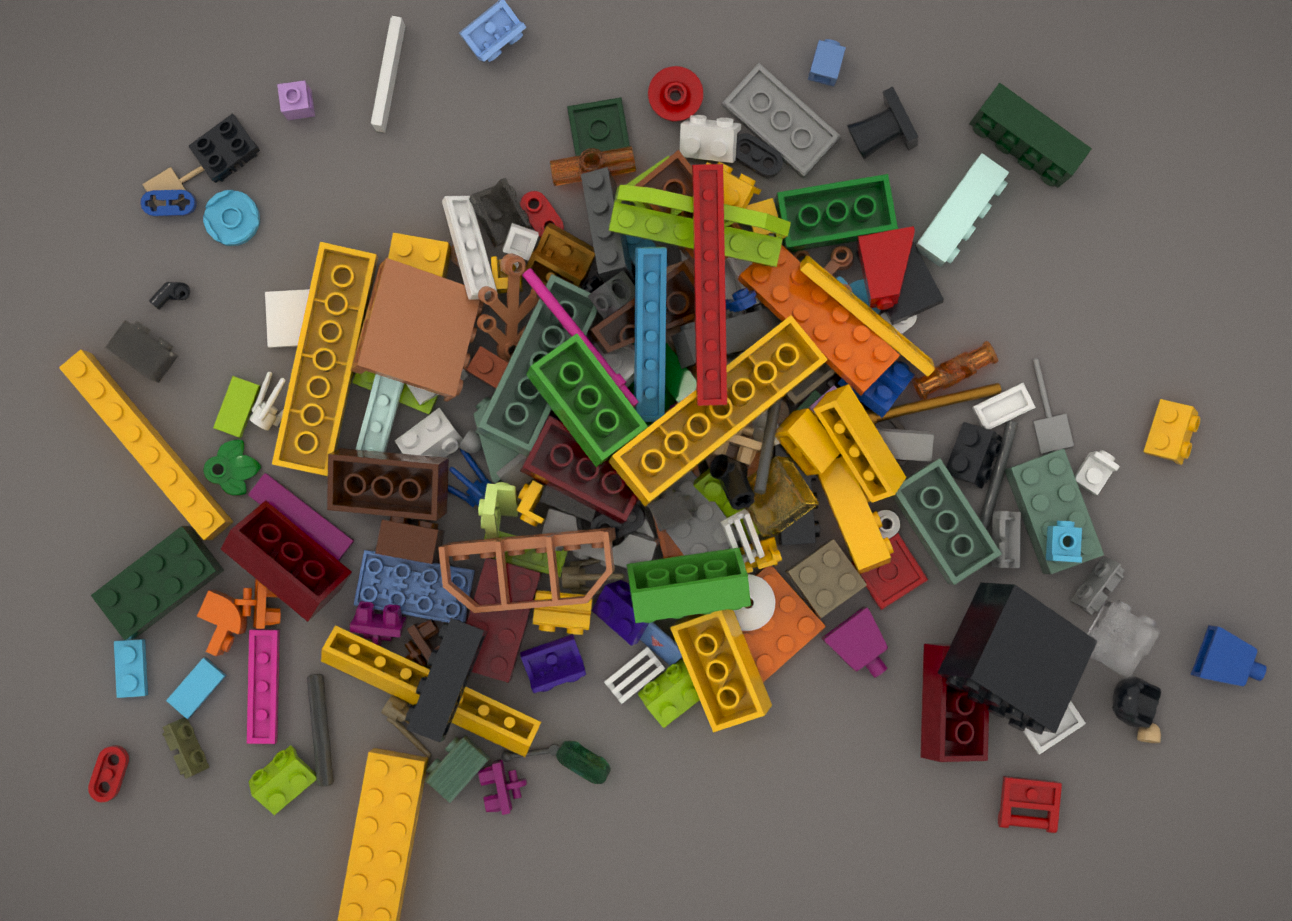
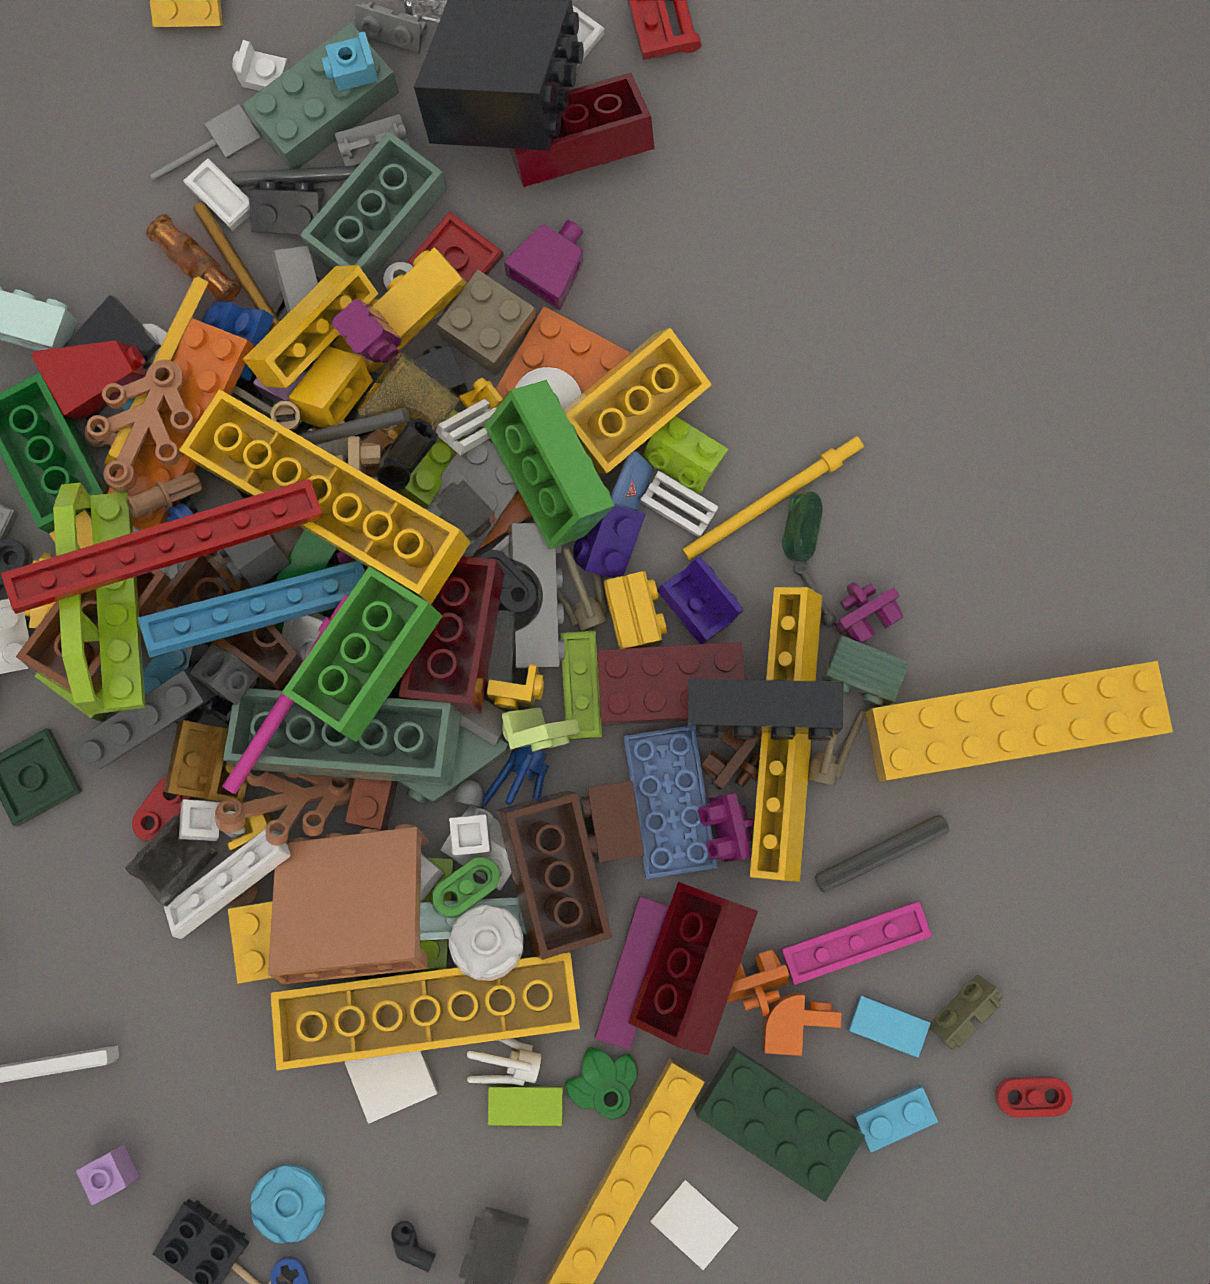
camera: 105 degrees left, 5 degrees down
(112, 497) = (694, 1224): none -> white sticker
(281, 780) = (959, 878): lime bracket -> none
(356, 418) = (486, 942): none -> white tile
(401, 416) = (465, 888): none -> bright green plate
(438, 433) = (470, 834): none -> white plate
(516, 546) = (574, 689): nougat plate -> none
(570, 169) = (89, 790): clear orange piece -> none
(627, 802) = (829, 461): none -> yellow bar
(764, 292) = (163, 494): none -> medium nougat axle
(788, 399) = (283, 410): none -> tan hinge
(827, 297) = (143, 418): none -> nougat plant
(837, 484) = (367, 332): none -> magenta brick

